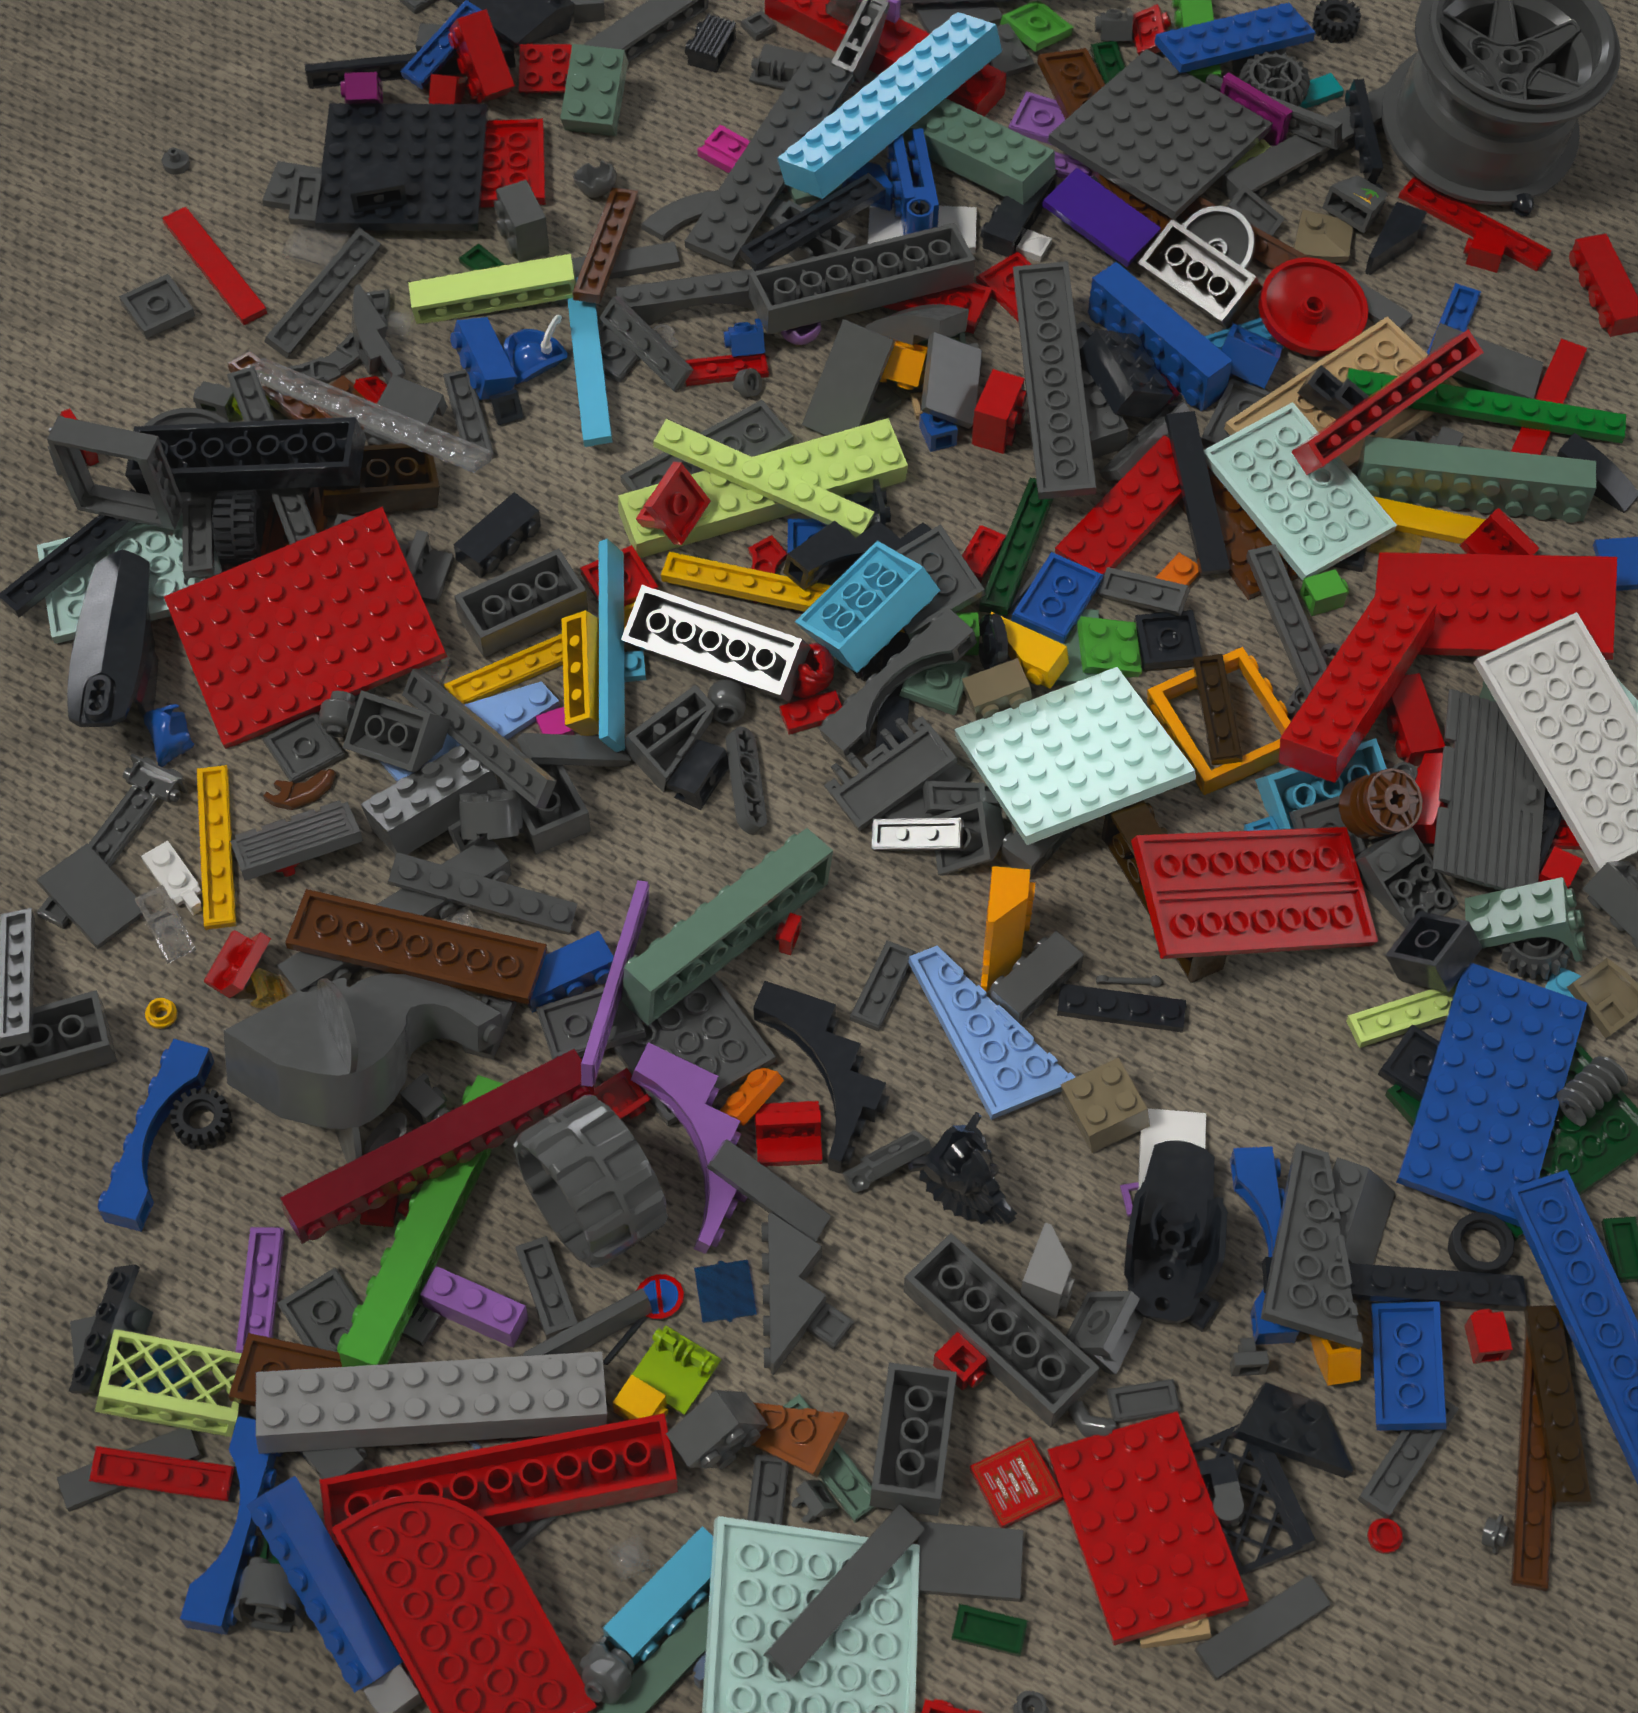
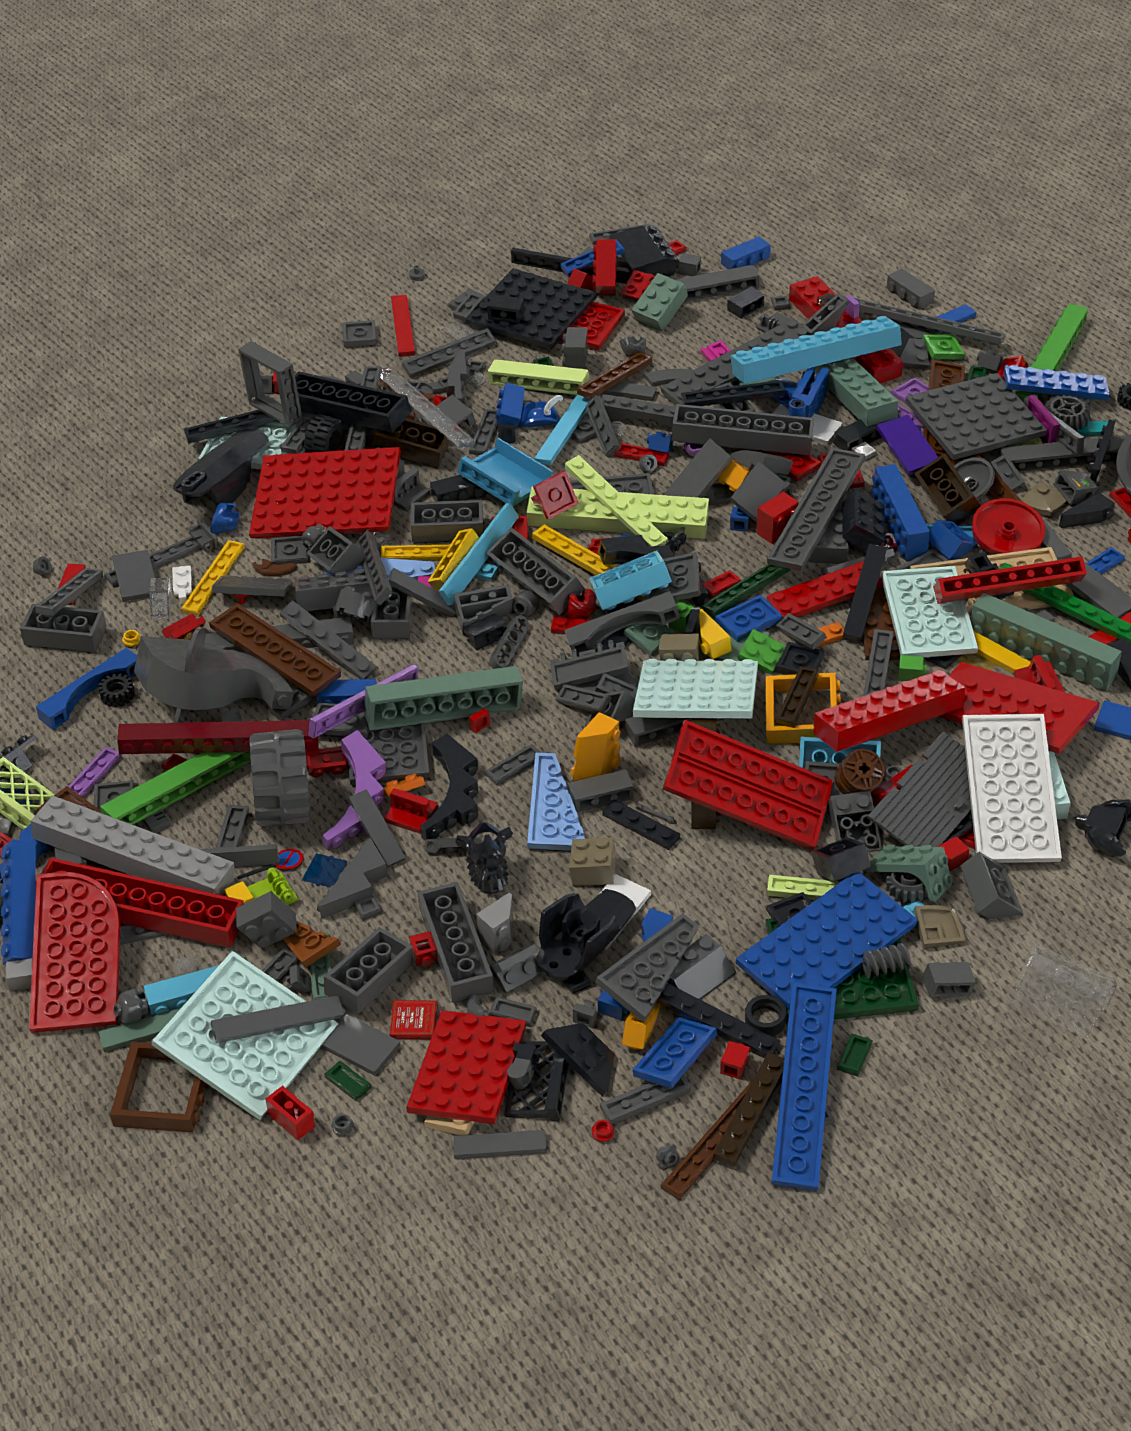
camera: 30 degrees right, 15 degrees down
(362, 88) = (534, 264): magenta brick -> none
(474, 1306) = (188, 822): medium lavender brick -> none
(557, 483) = (504, 472): none -> dark azure panel
(1413, 721) = (919, 739): red brick -> none

